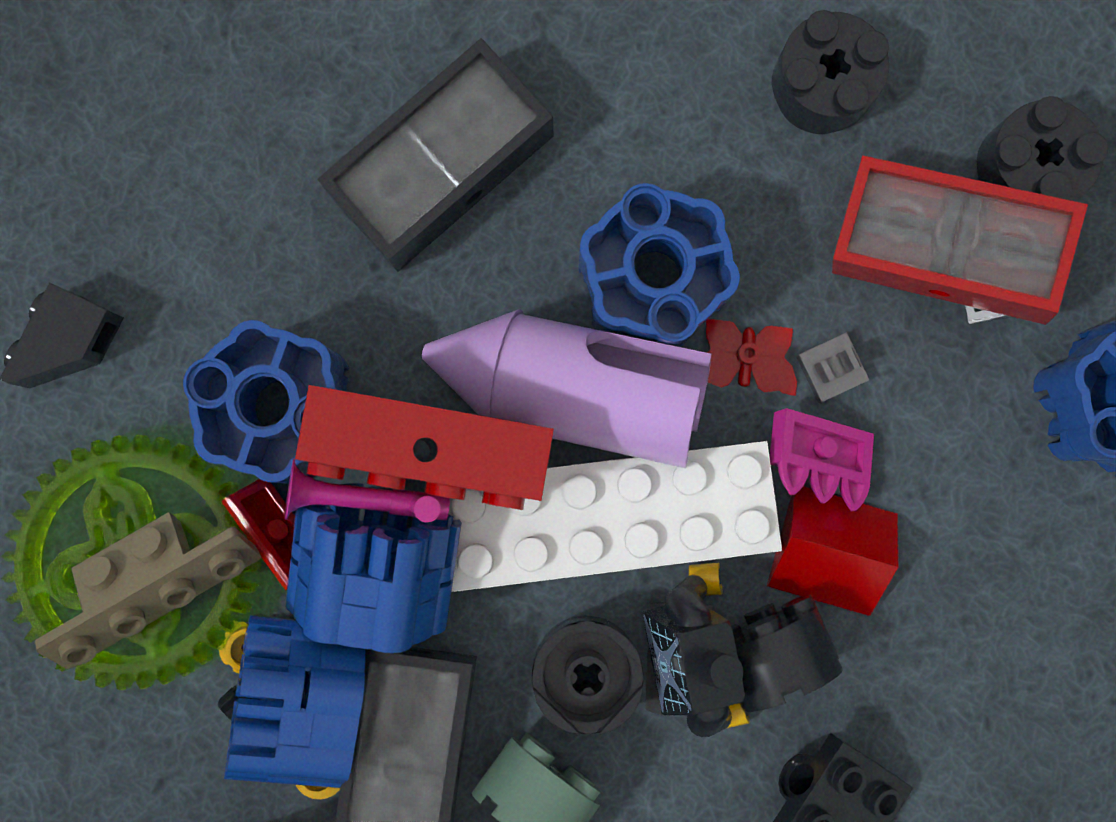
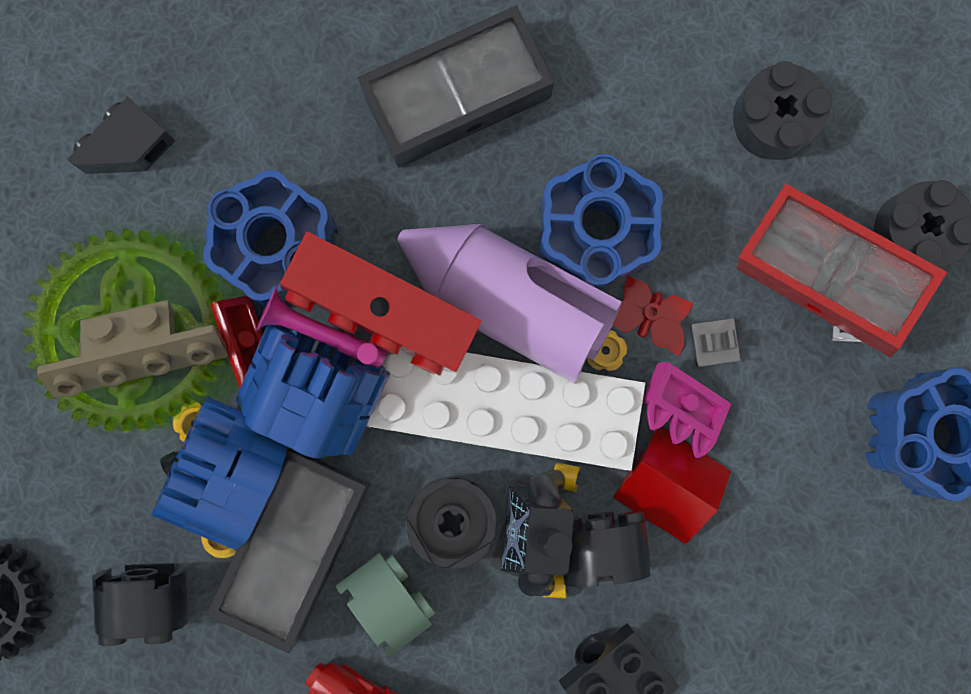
camera: 10 degrees right, 0 degrees up
(720, 421) = (614, 358): none -> yellow plate

